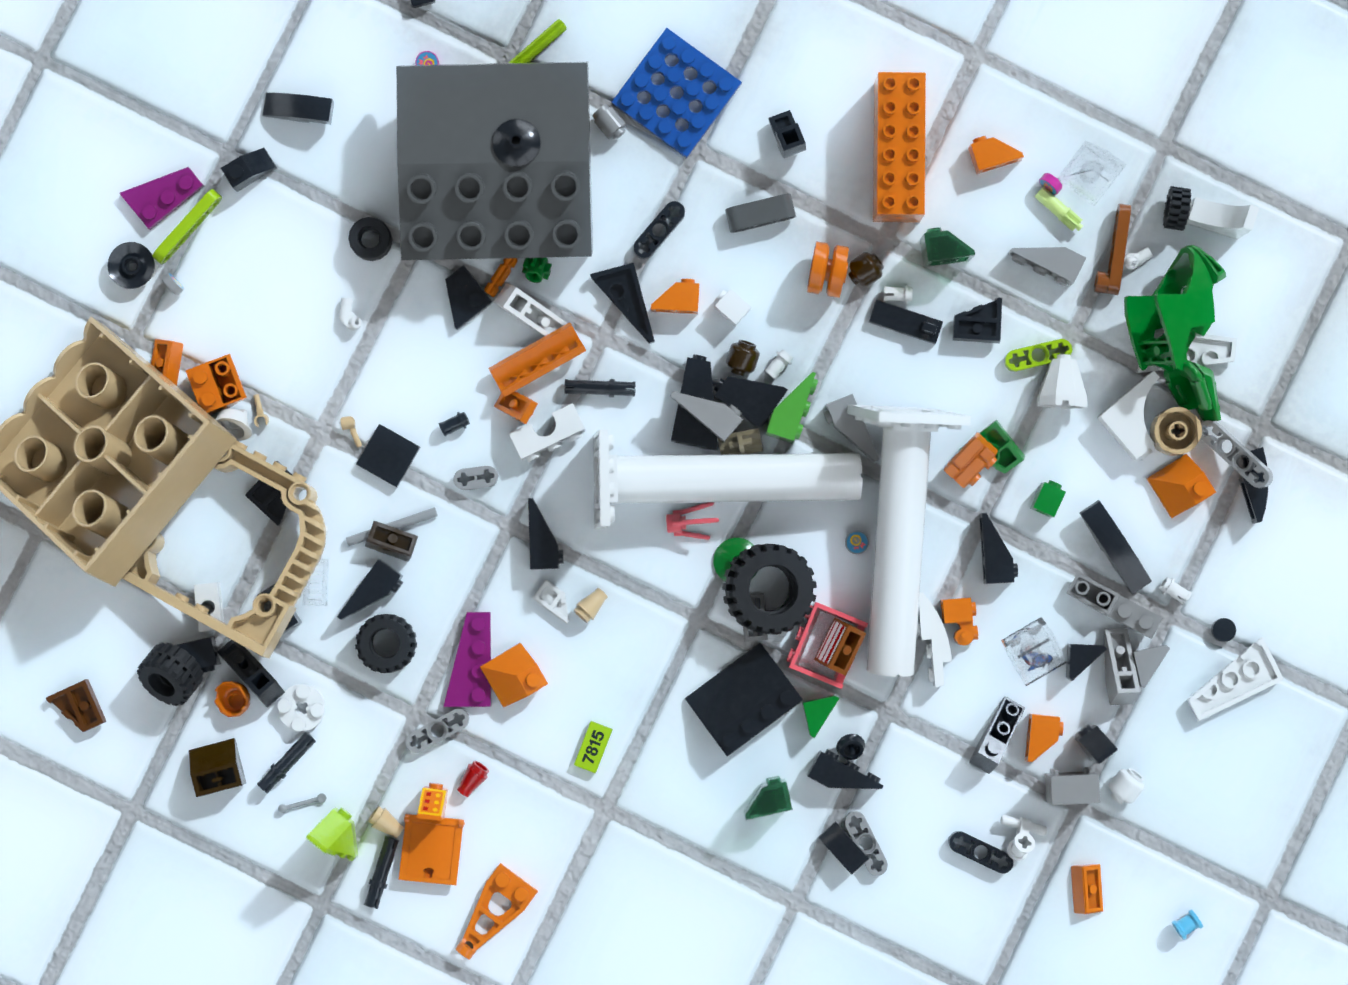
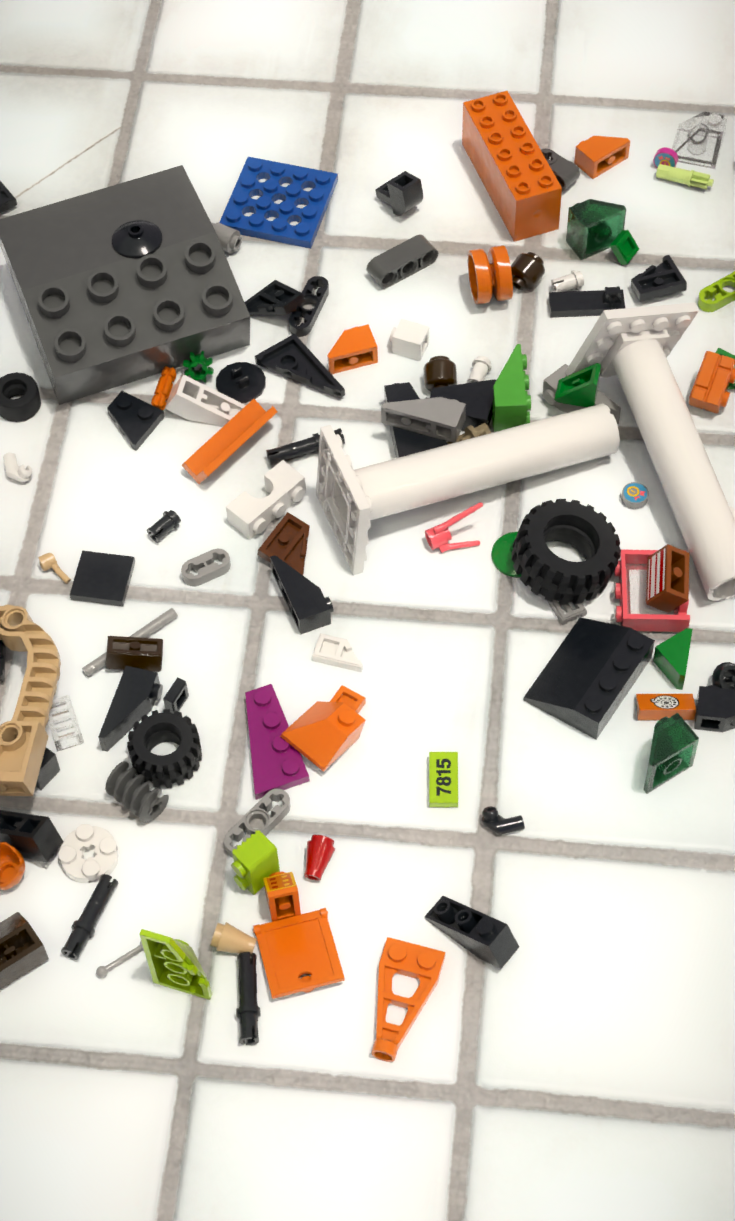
camera: 20 degrees left, 30 degrees down
(351, 672) = (135, 793): none -> dark grey piece
(410, 597) = (176, 695): none -> black tile
(420, 773) = (254, 861): none -> lime brick
(516, 406) = (224, 486): orange slope -> none
(543, 651) = (350, 698): none -> orange tile
(549, 484) = (287, 542): none -> reddish brown wing
(564, 882) = (475, 931): none -> black slope
(570, 291) = (241, 381): none -> black piece
(589, 606) = (379, 642): tan cone -> none
(620, 801) = (499, 824): none -> black arm
(628, 217) = (275, 300): none -> black wing
(792, 748) = (665, 705): none -> orange slope
(848, 431) = (579, 387): none -> green slope
(944, 161) = (564, 170): none -> dark grey piece
(965, 275) = (624, 247): none -> green tile
(1055, 261) = (701, 212): light grey slope -> none

